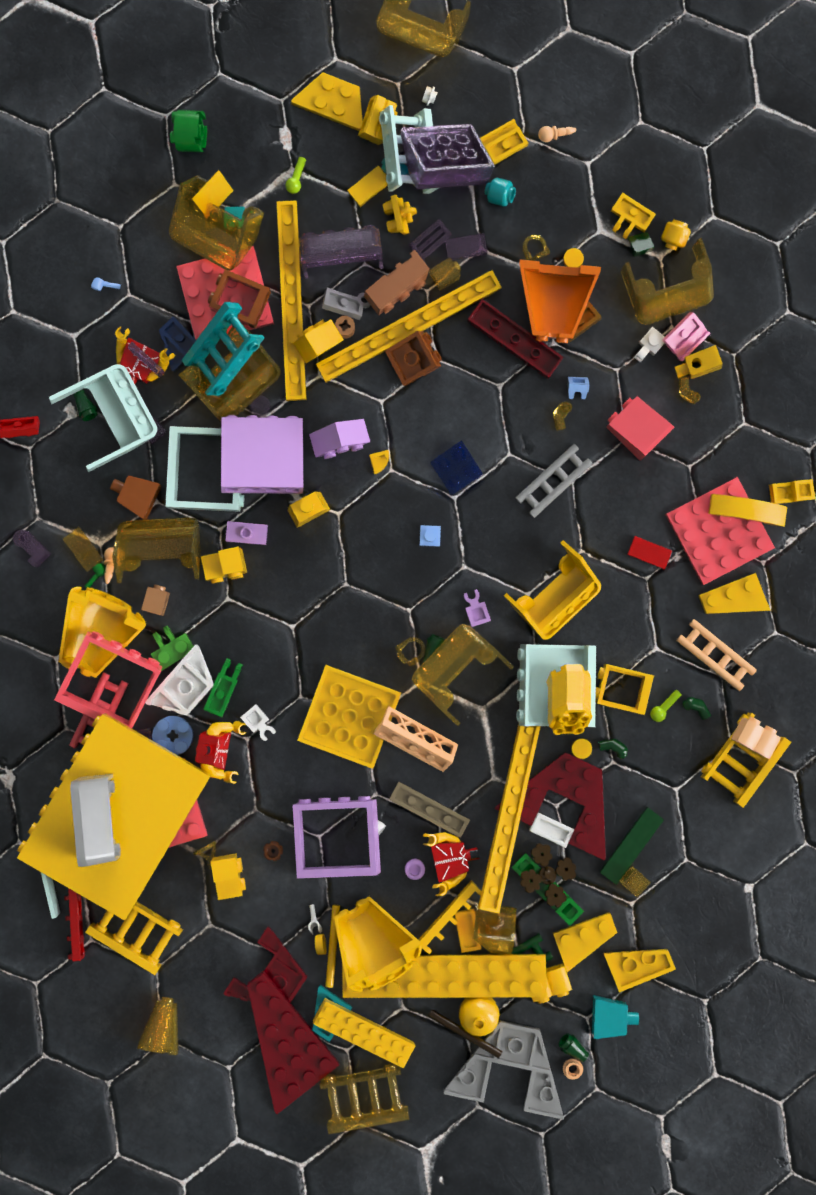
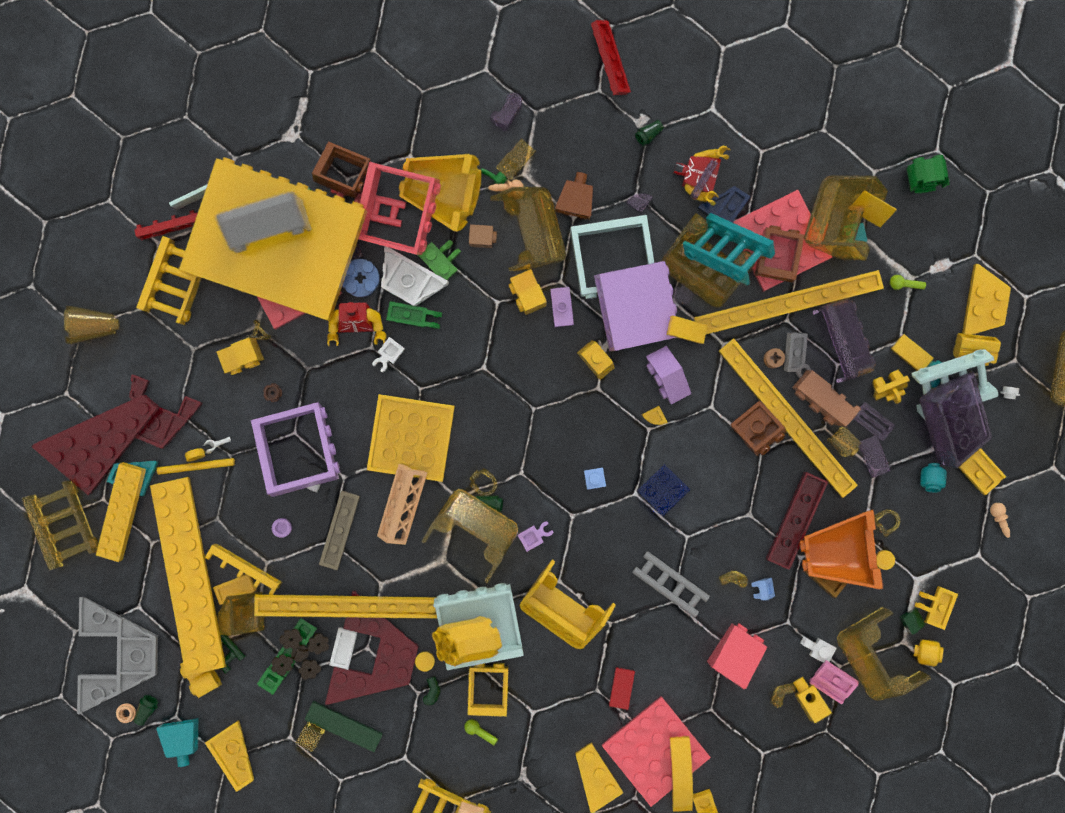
camera: 75 degrees right, 0 degrees up
(34, 738) = (325, 161): none -> dark orange window
(98, 283) = (765, 120): light blue hand -> none
(121, 408) = (655, 165): light aqua windscreen -> none
(297, 409) = (687, 329): none -> yellow tile
(317, 340) = (756, 335): yellow brick -> none
(373, 946) = (201, 504): yellow cone -> none
(449, 859) = (296, 559): torso -> none
(460, 1031) = (138, 606): dark brown bar -> none
(479, 1015) = (157, 615): yellow cylinder -> none
(583, 938) = (248, 699): yellow wing -> none
(697, 704) = (487, 762): dark green arm -> none
(715, 642) = (536, 759): light nougat bar -> none

